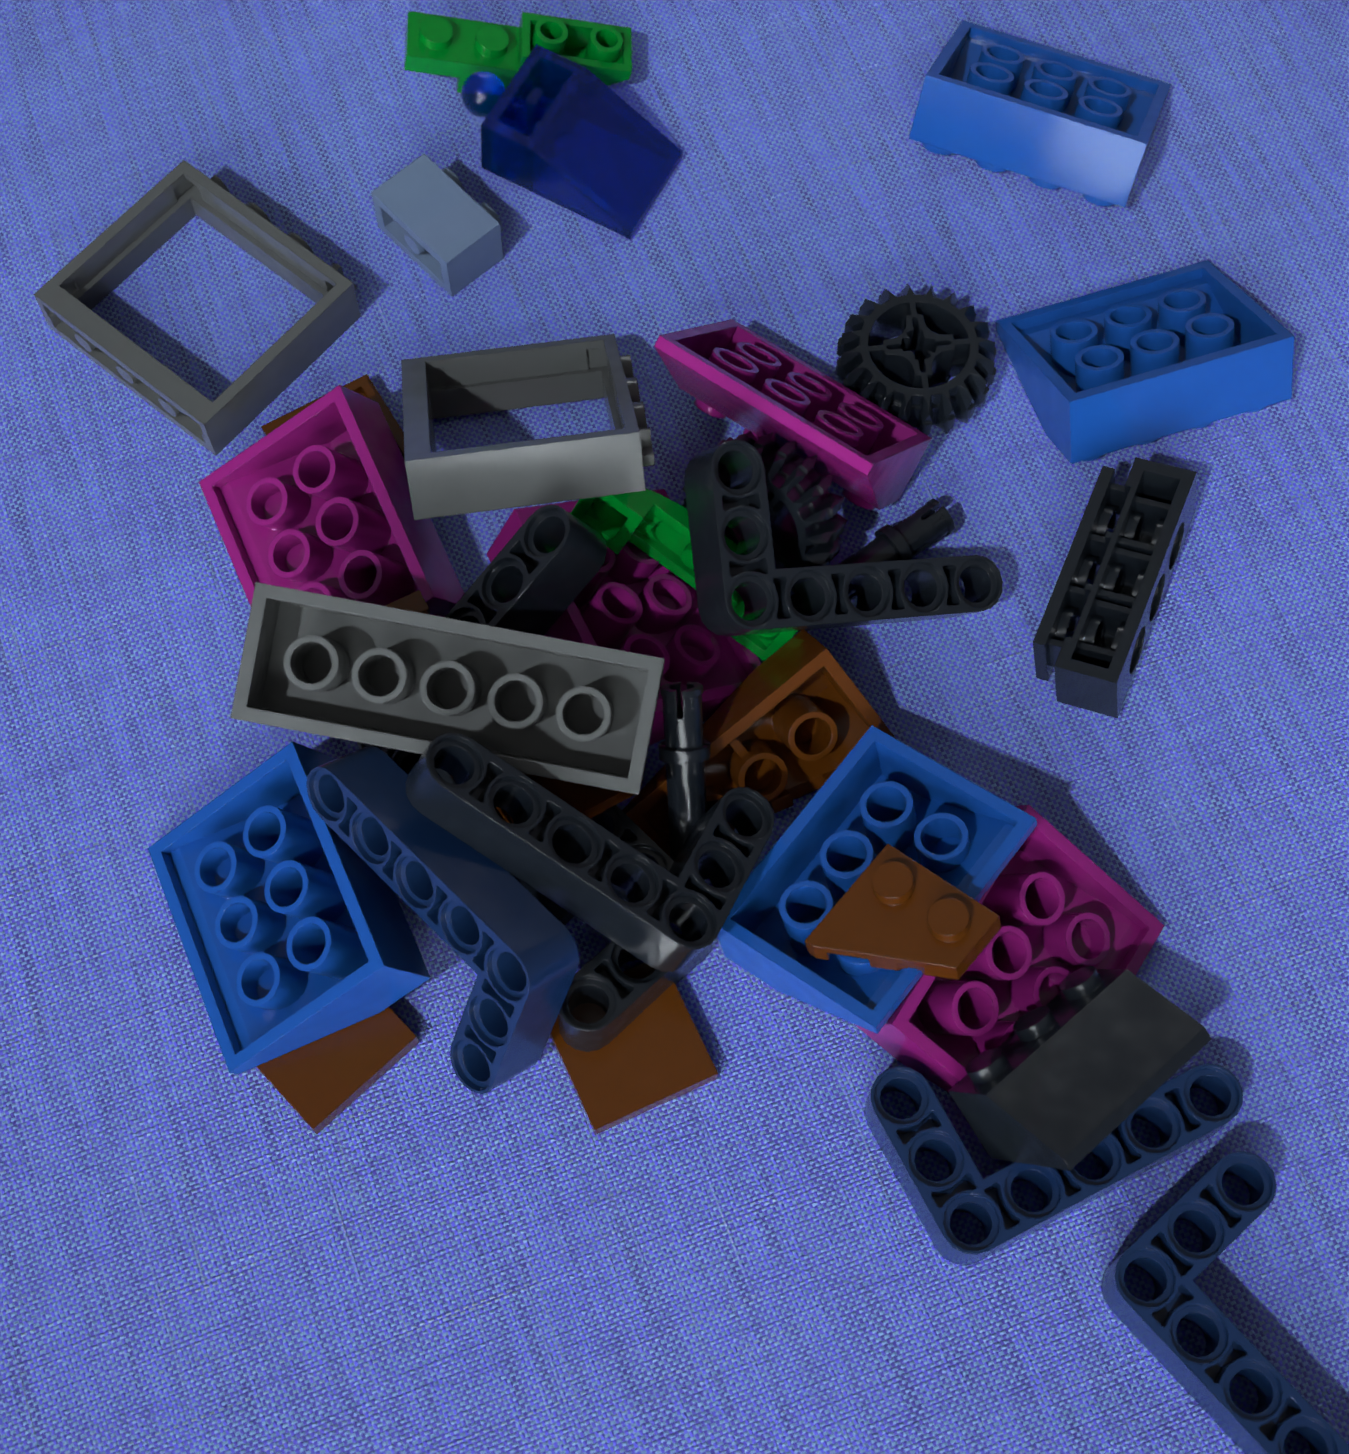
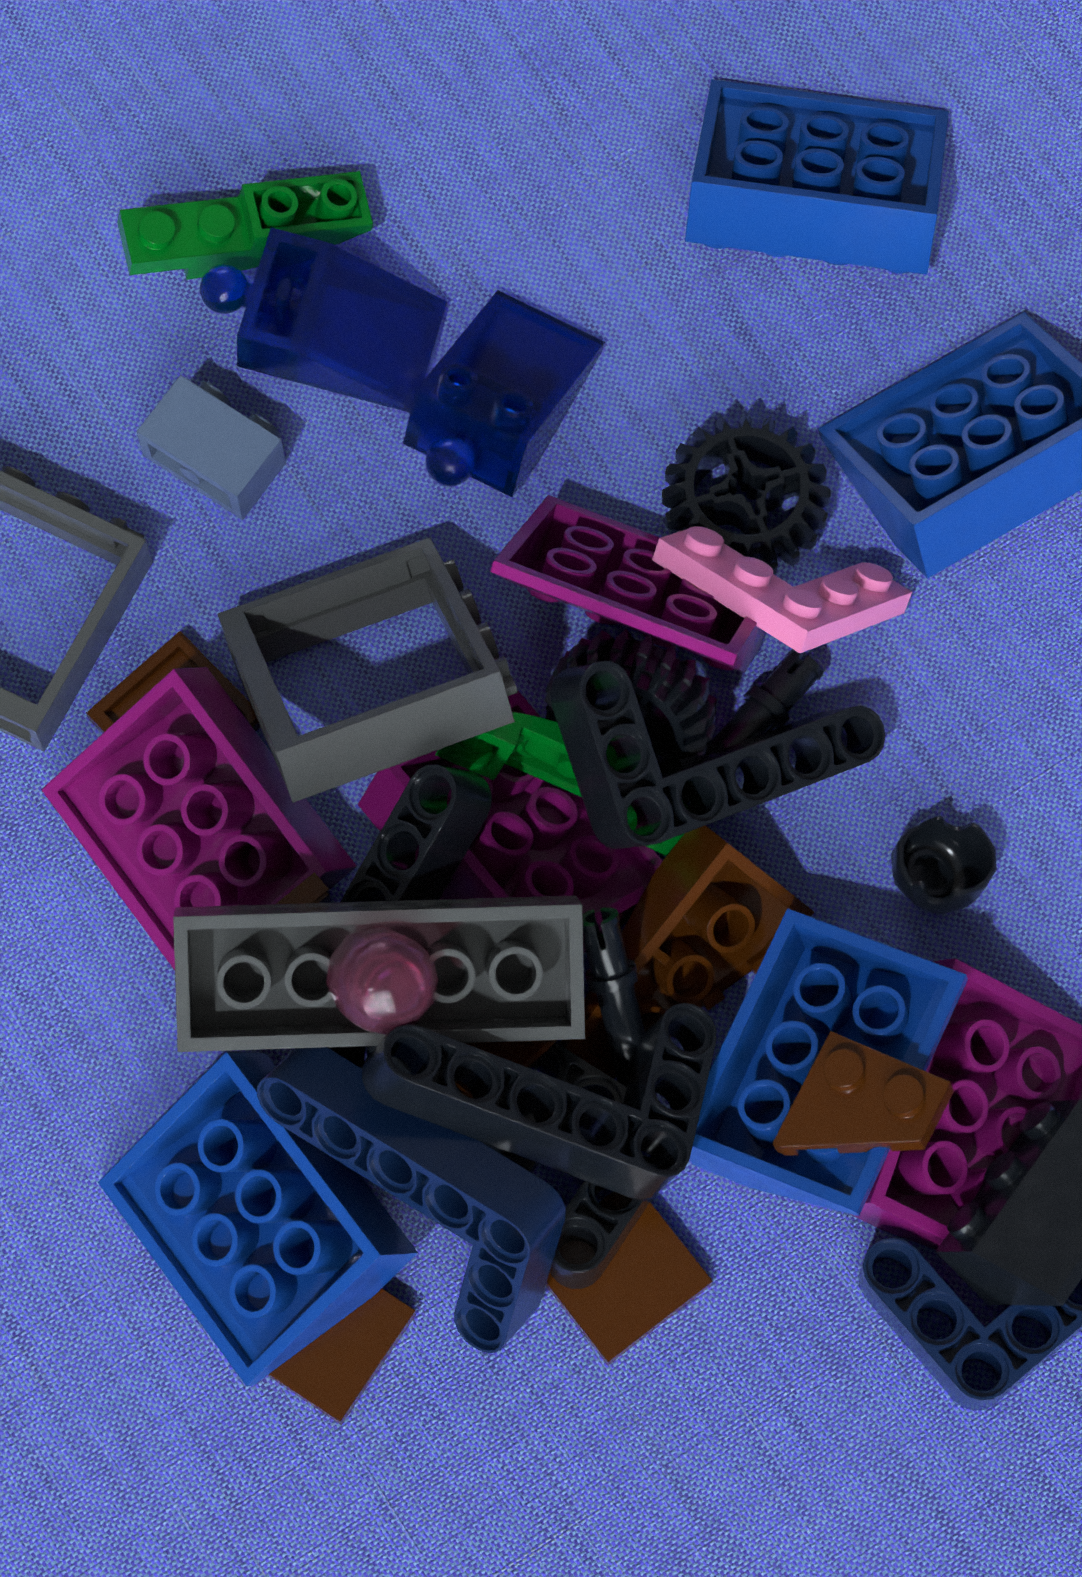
camera: 10 degrees left, 5 degrees up
(446, 687) = (381, 979): none -> clear pink hair
(708, 233) = (499, 395): none -> clear blue slope
(933, 451) = (794, 615): none -> bright pink plate
(1032, 723) = (943, 864): none -> black hair
(1122, 603) = (1009, 700): black brick -> none

